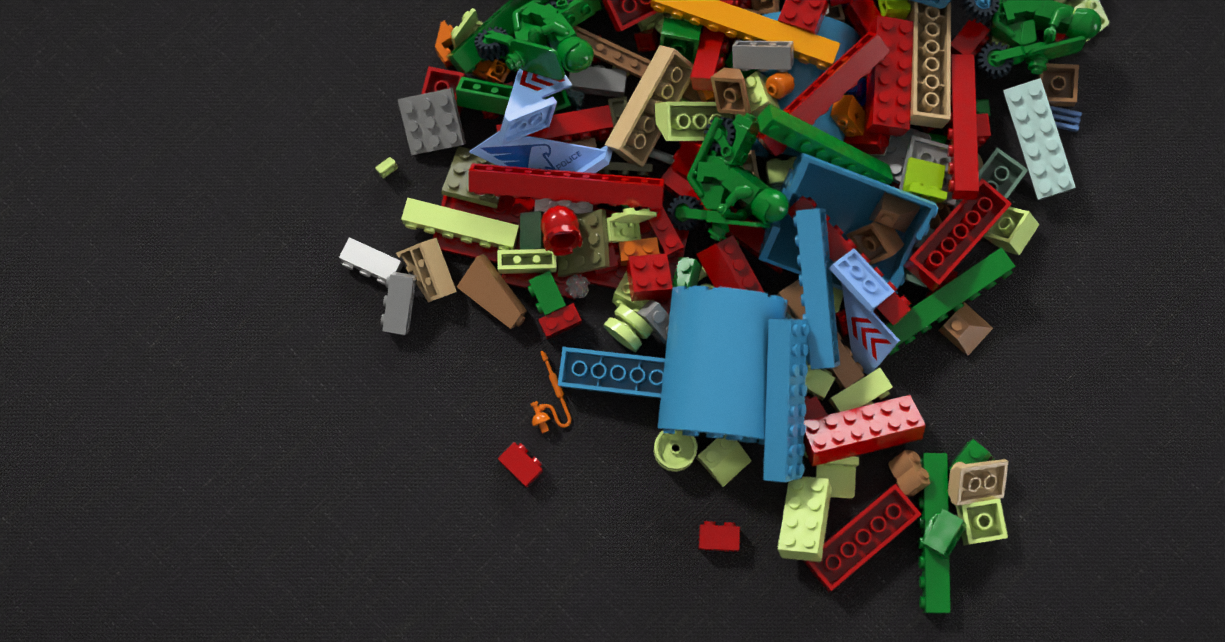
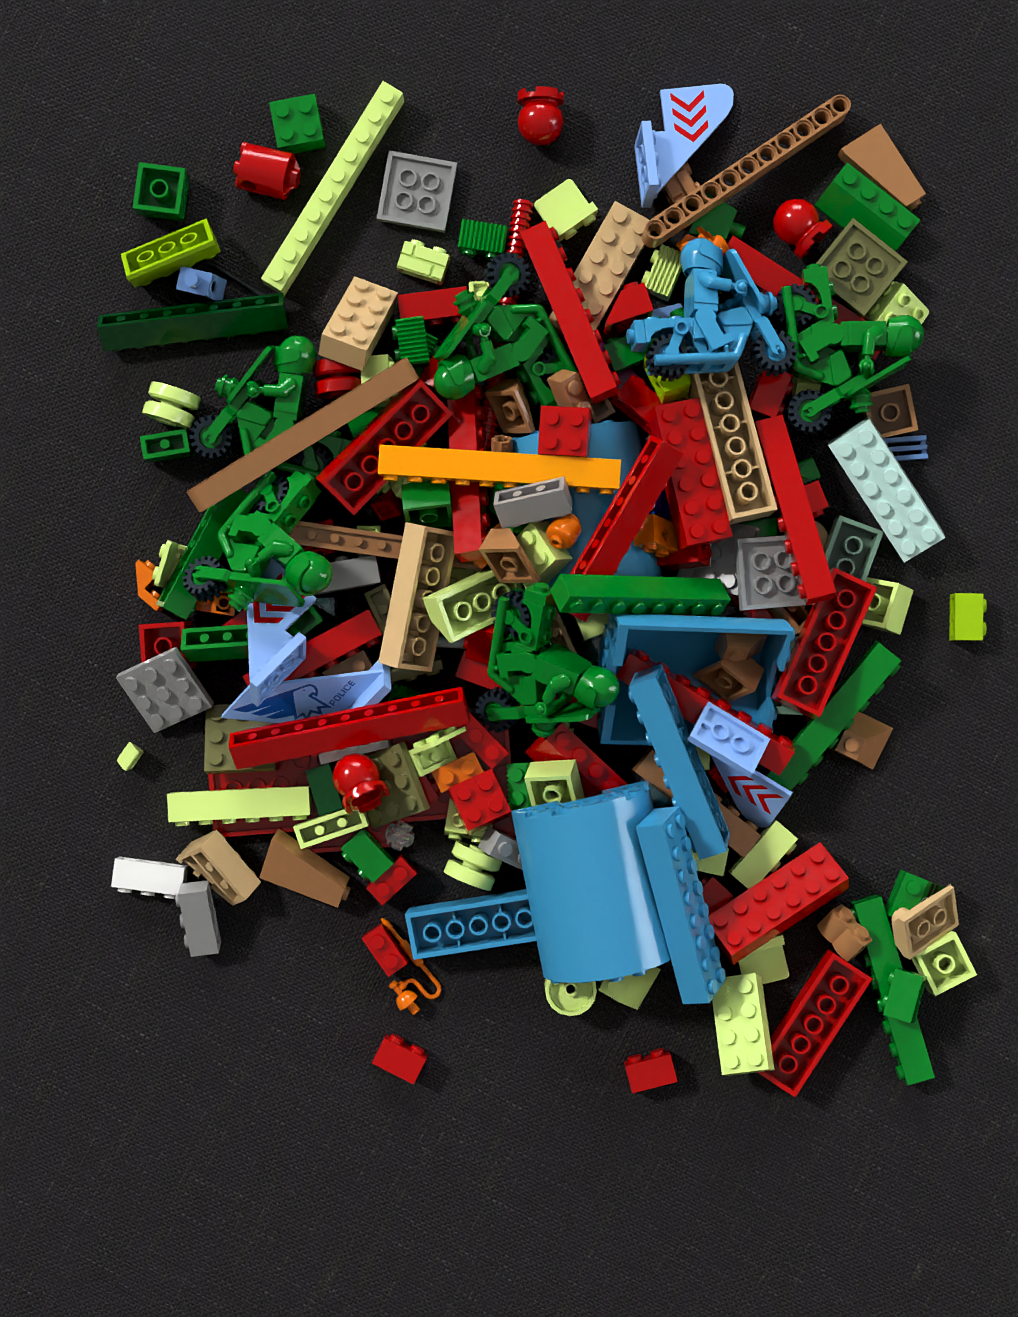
camera: 15 degrees left, 10 degrees up
(537, 374) = (385, 949): none -> red brick
(712, 275) = (553, 782): none -> yellowish green brick
(925, 180) = (767, 590): lime bracket -> none
(1076, 259) = (967, 617): none -> lime brick

